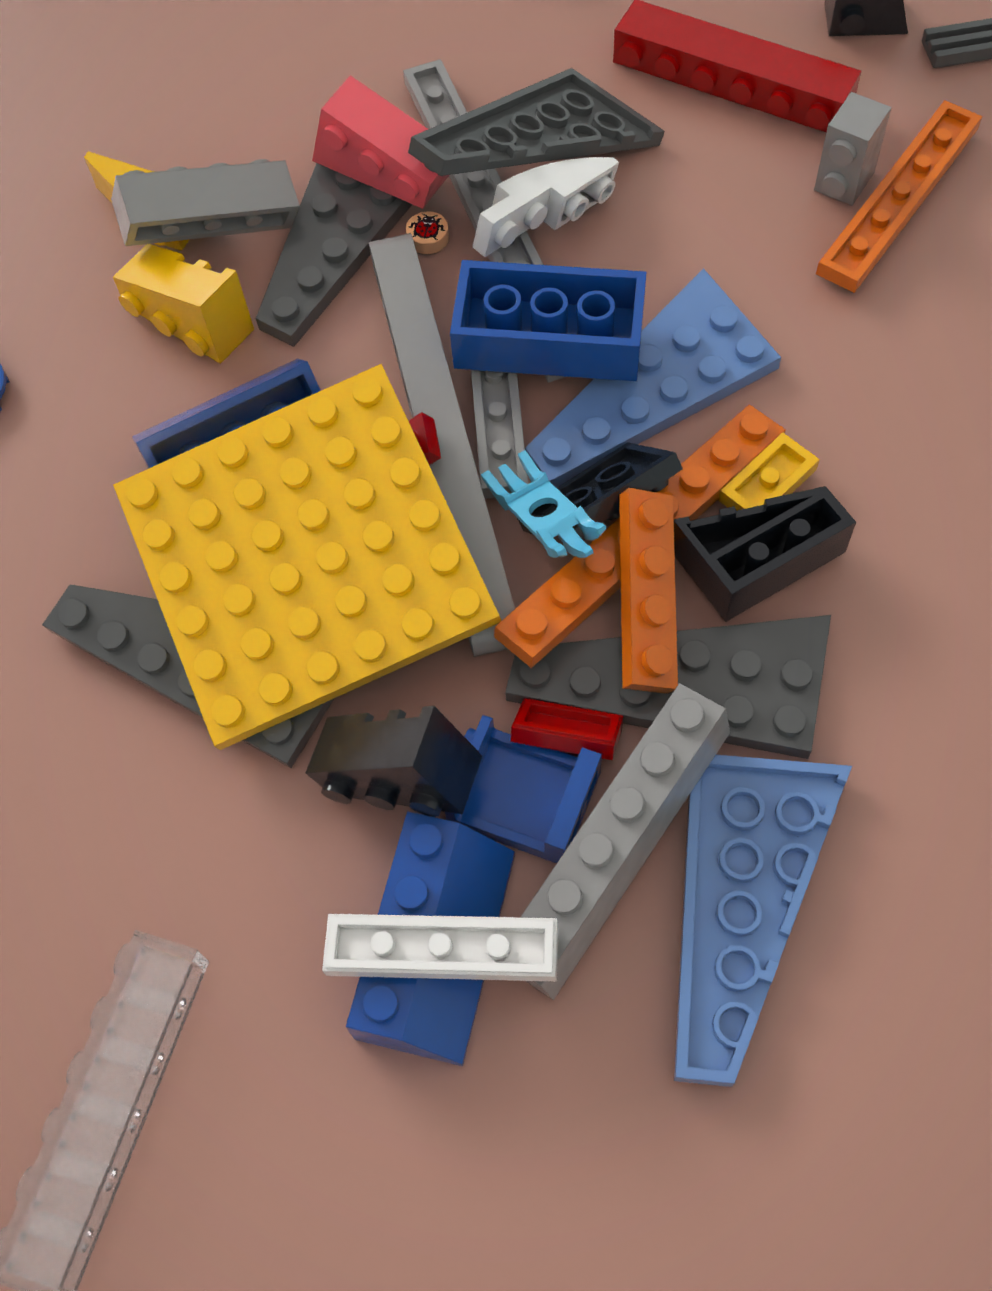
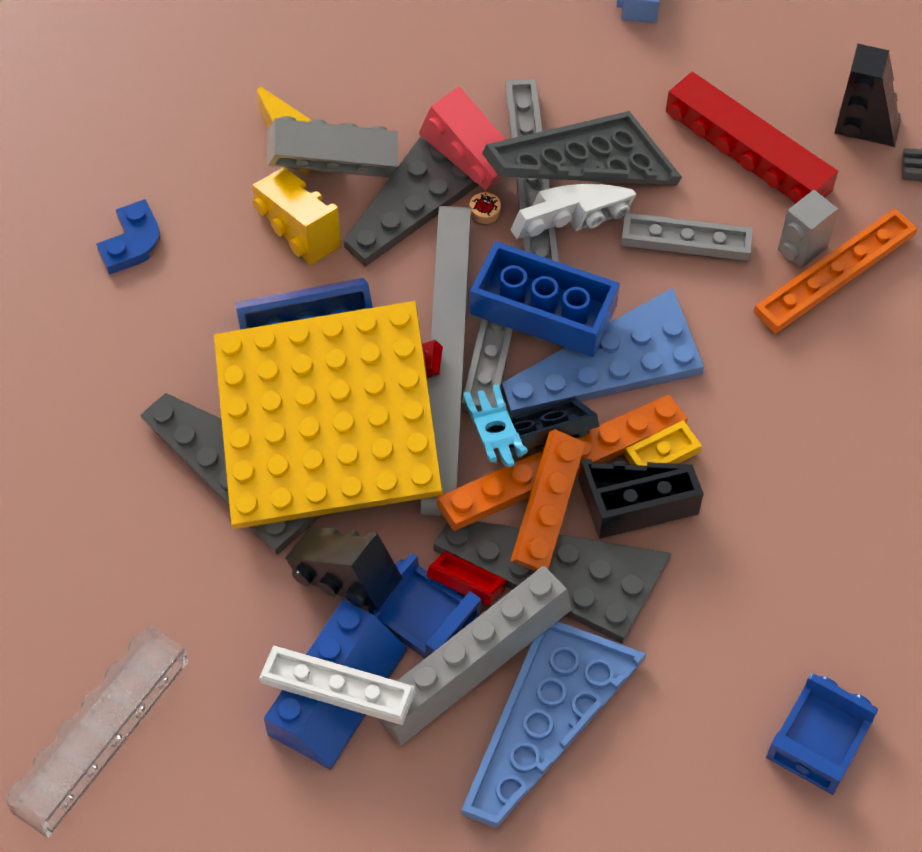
camera: 10 degrees right, 5 degrees down
(698, 201) = (687, 236): none -> light grey plate

